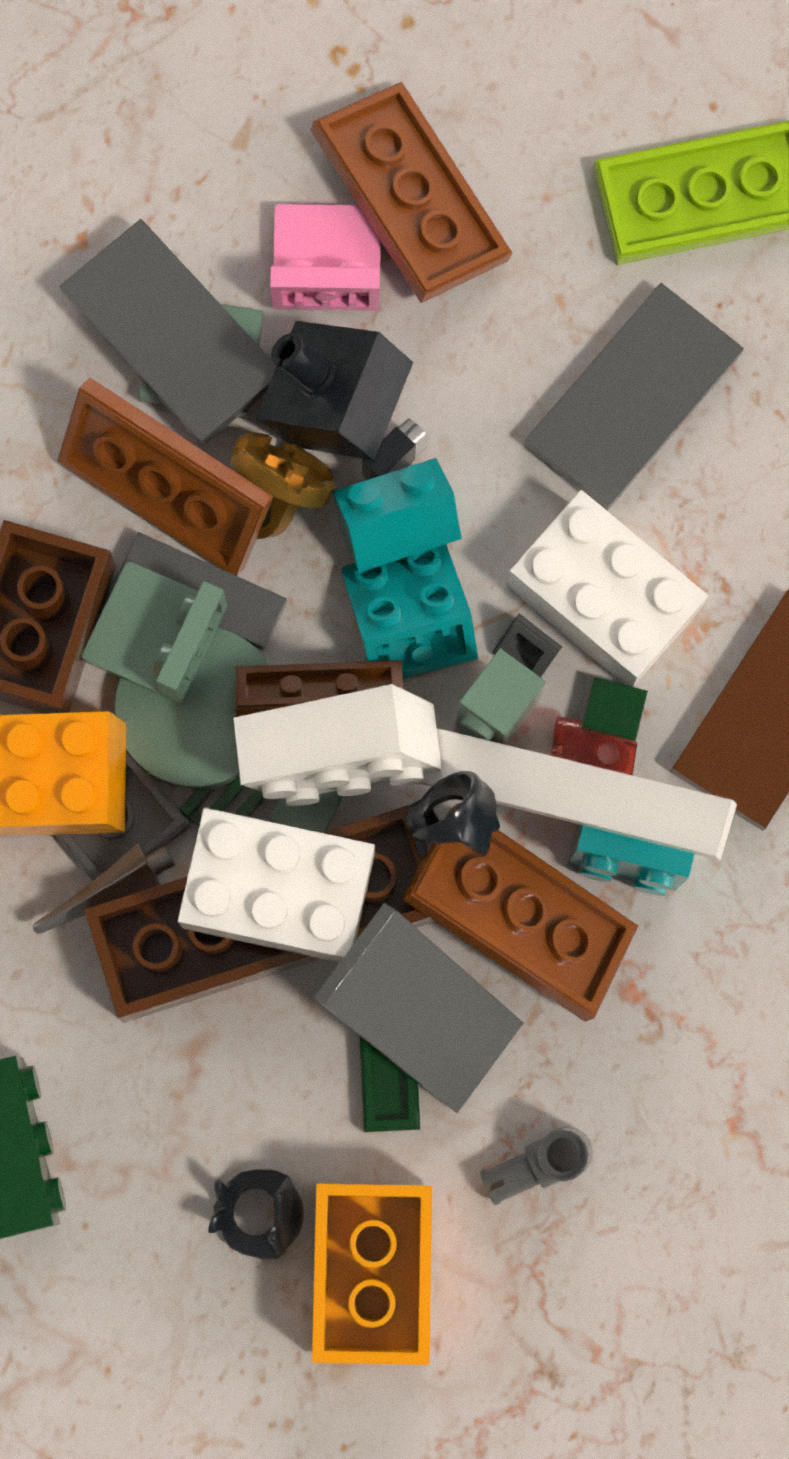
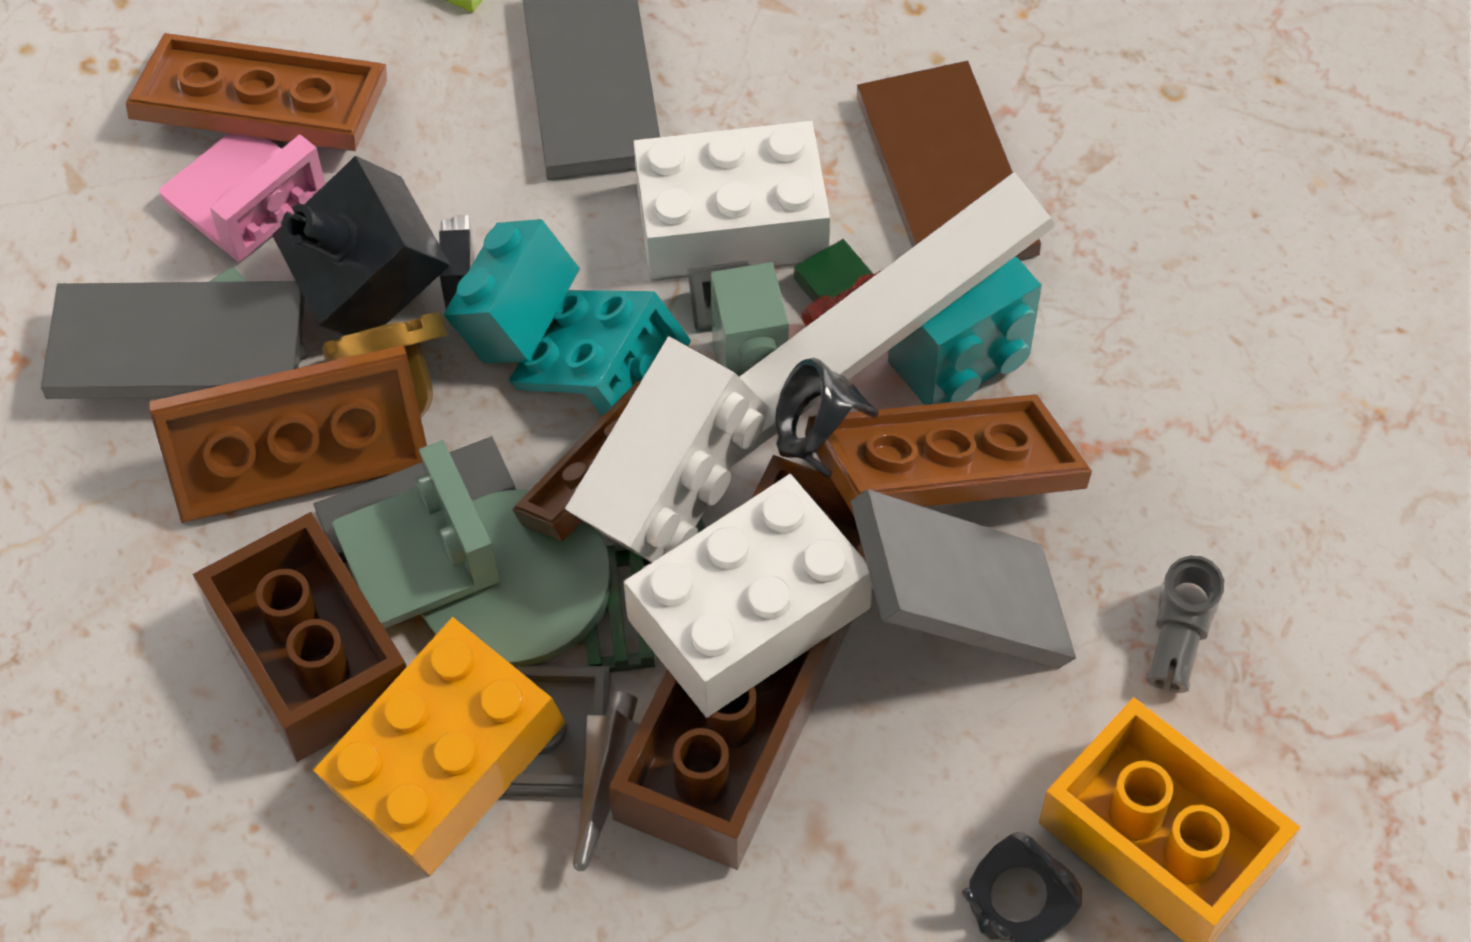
camera: 45 degrees left, 20 degrees down
(387, 1094) = (992, 690): dark green tile -> none

